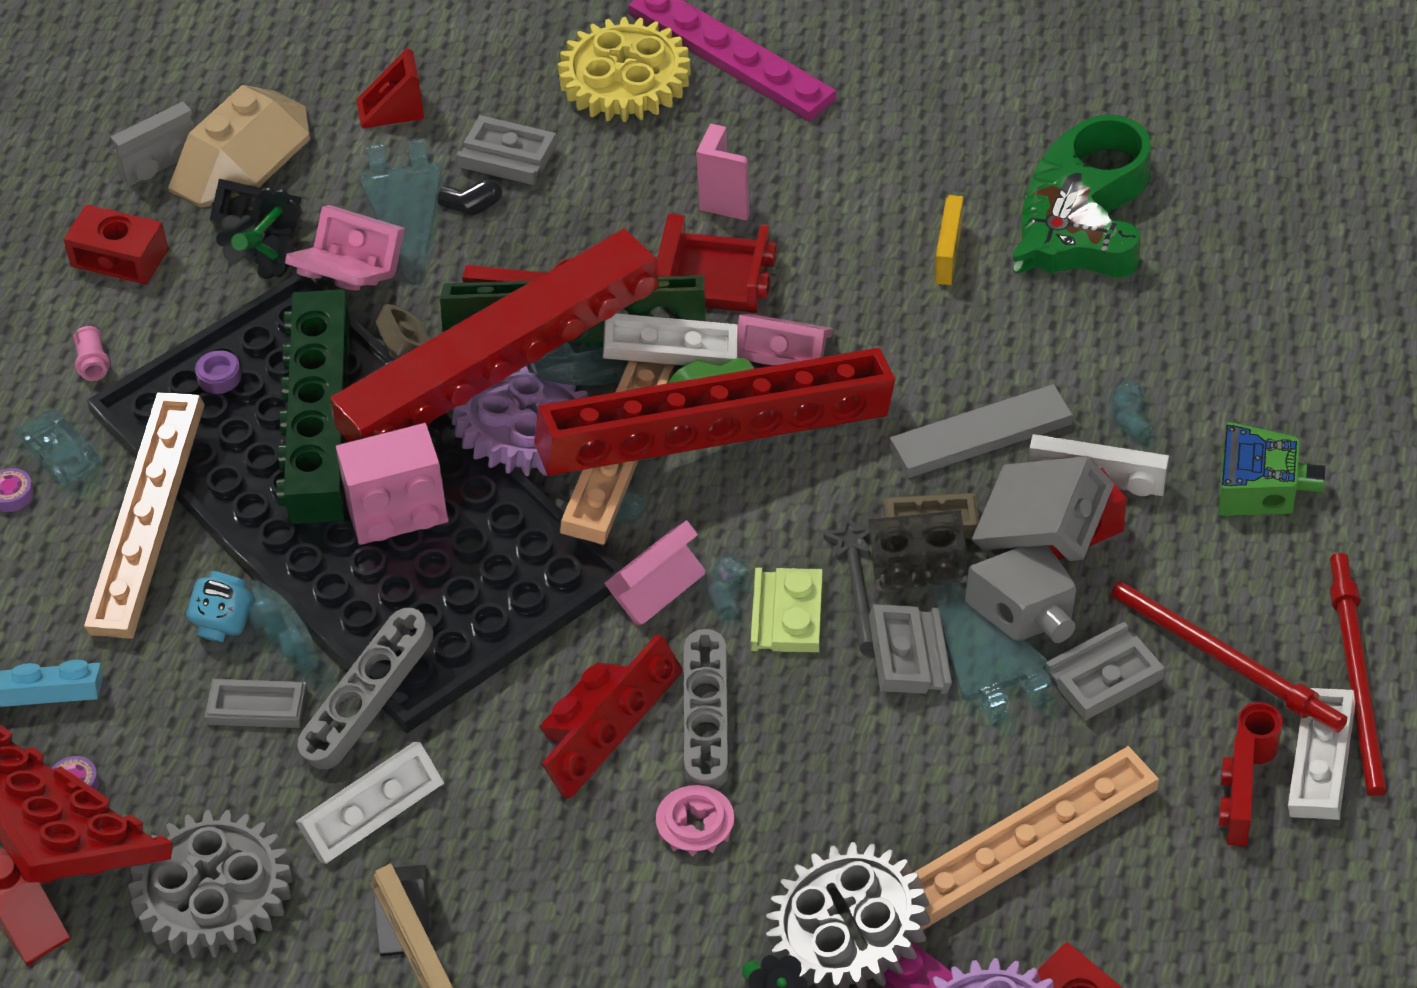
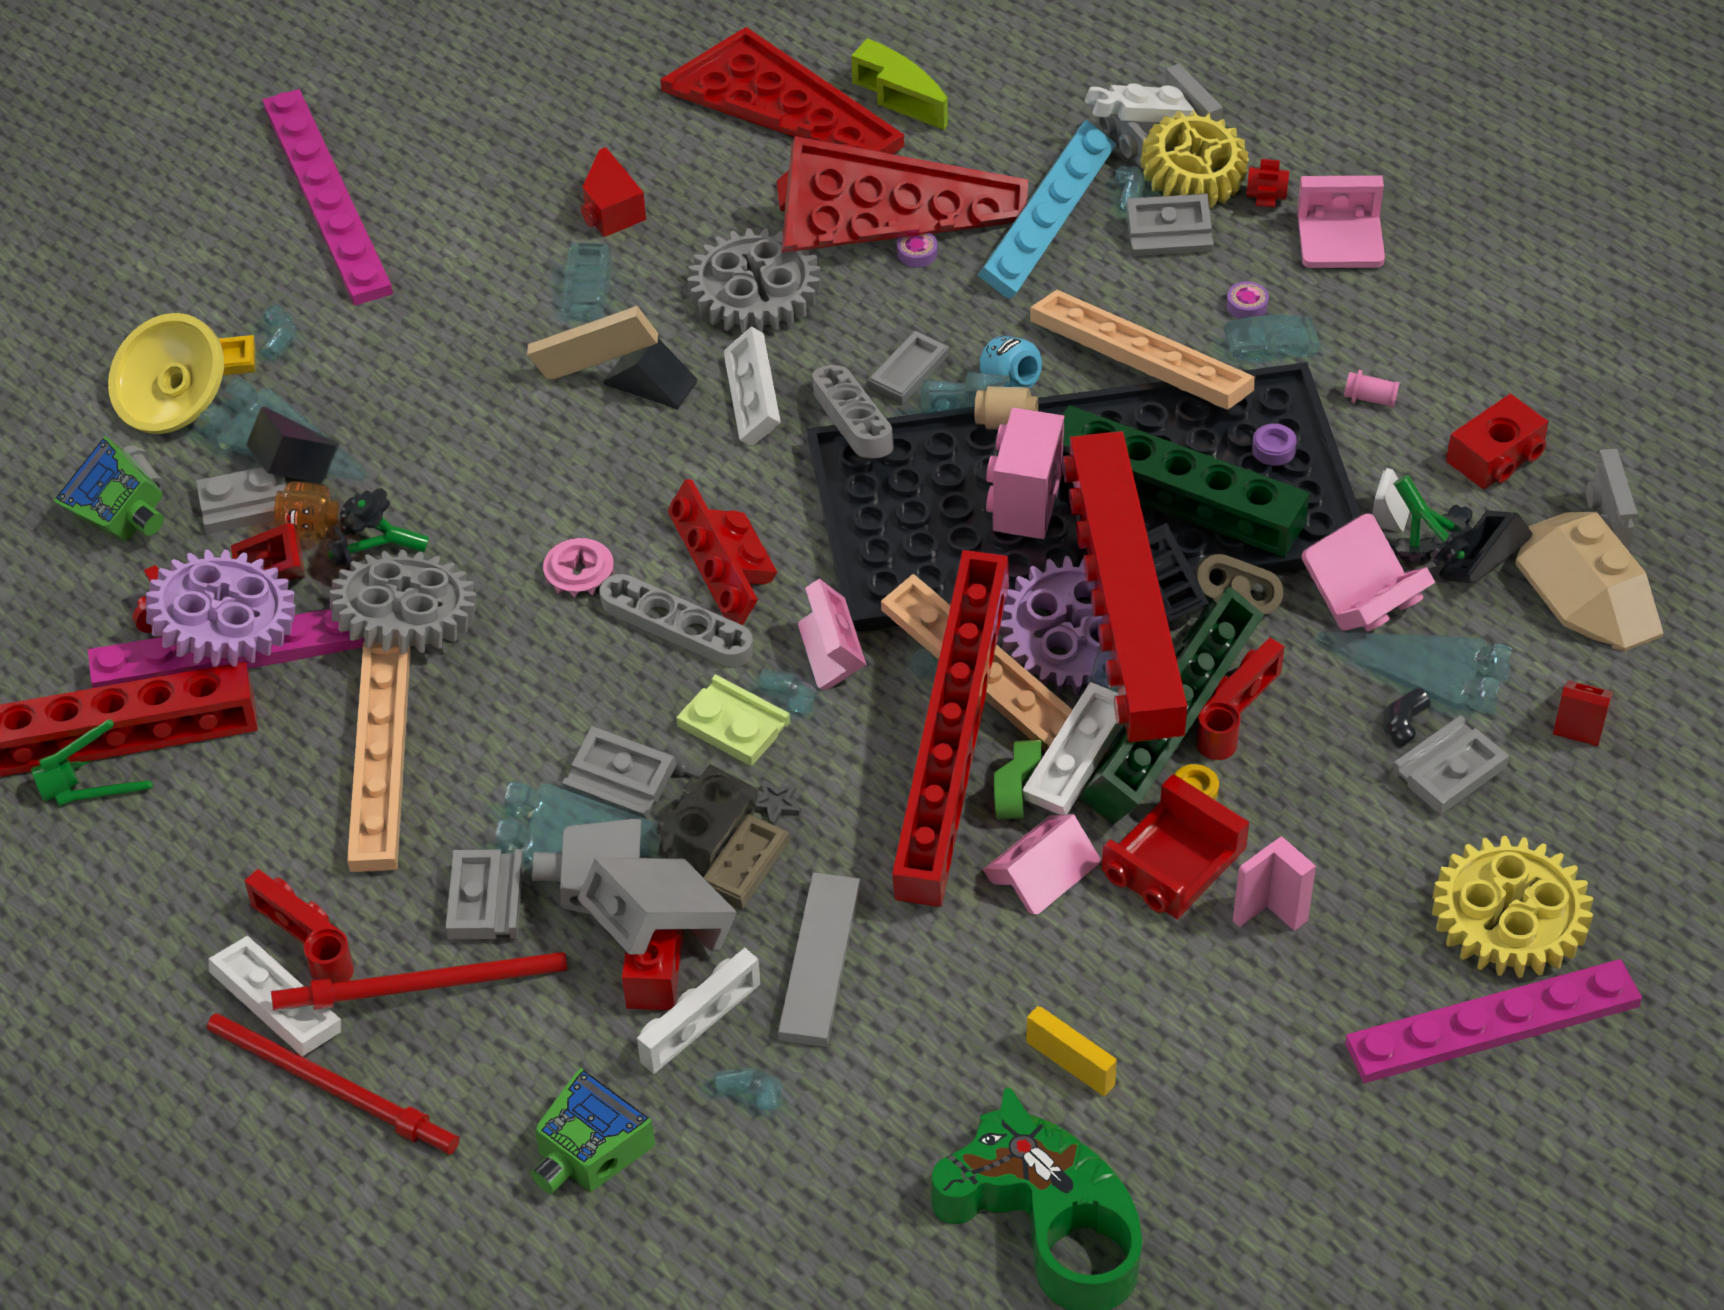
camera: 120 degrees right, 0 degrees up
(233, 289) = (1389, 507): none -> white slope
(297, 564) = (996, 403): none -> tan brick

